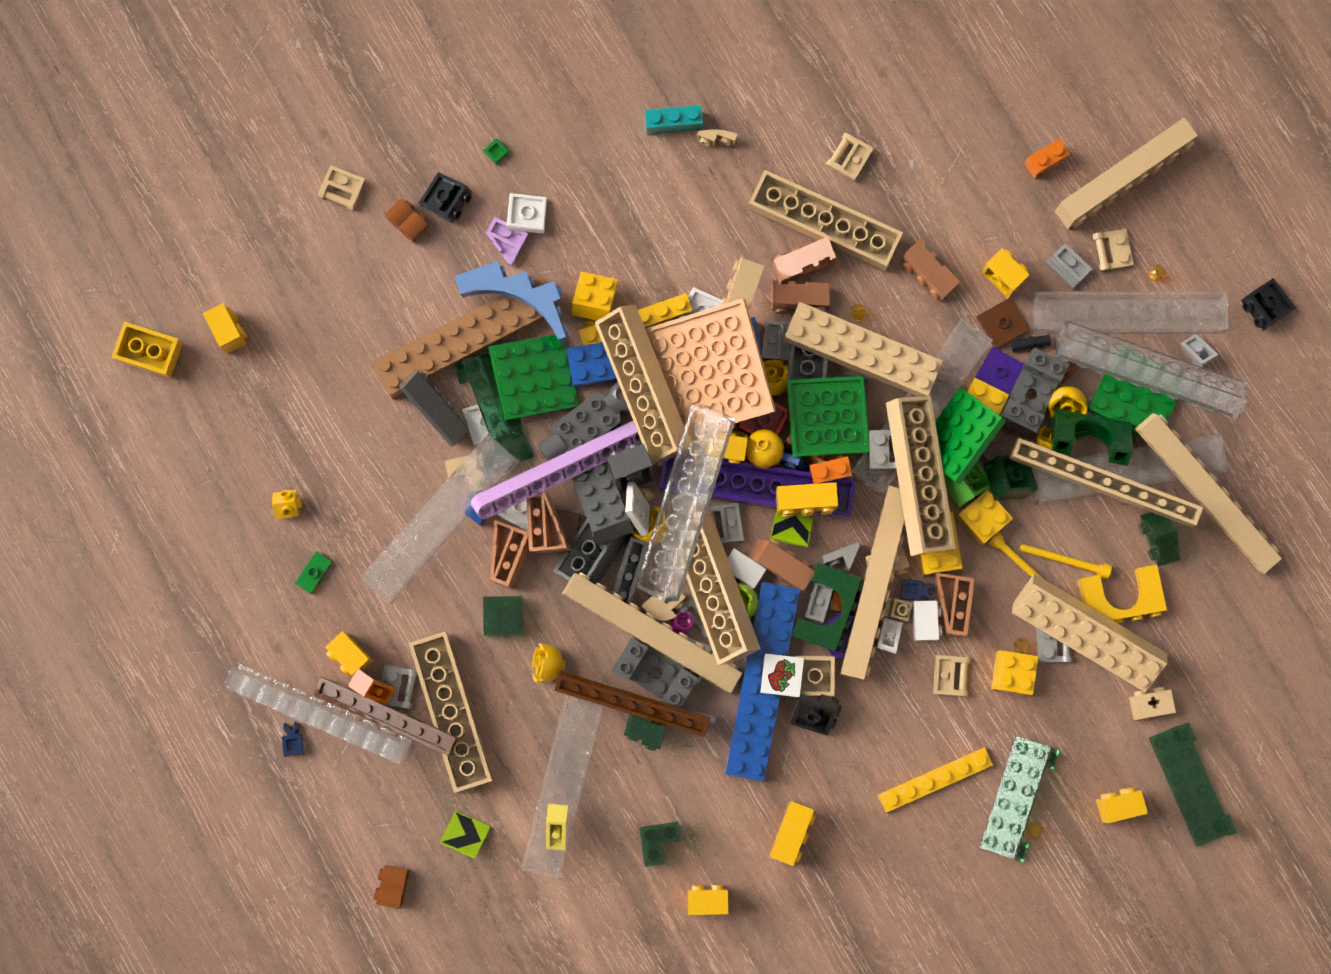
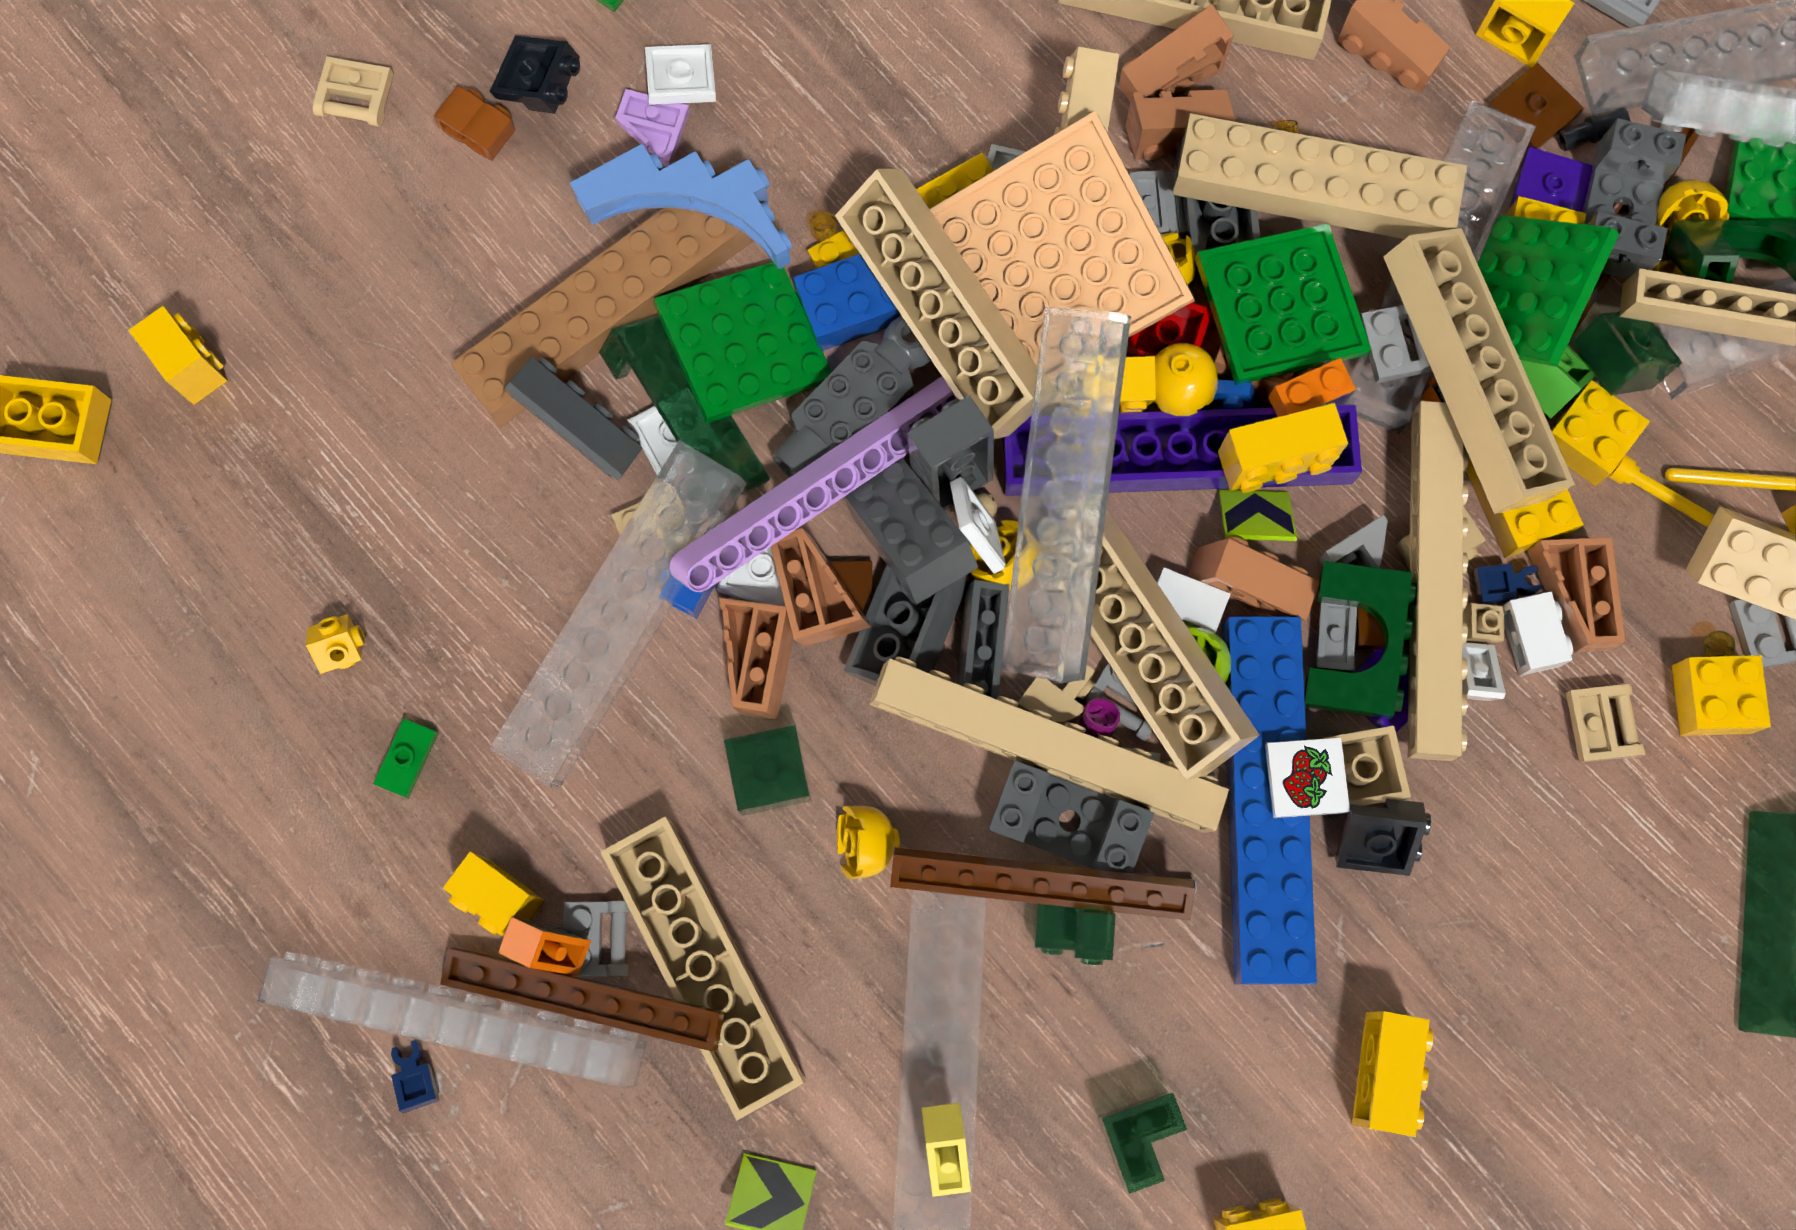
camera: 10 degrees left, 5 degrees down
(594, 296) = (821, 183): yellow brick -> none
(730, 522) = (1144, 526): light grey plate -> none
(935, 779) = (1624, 920): yellow plate -> none

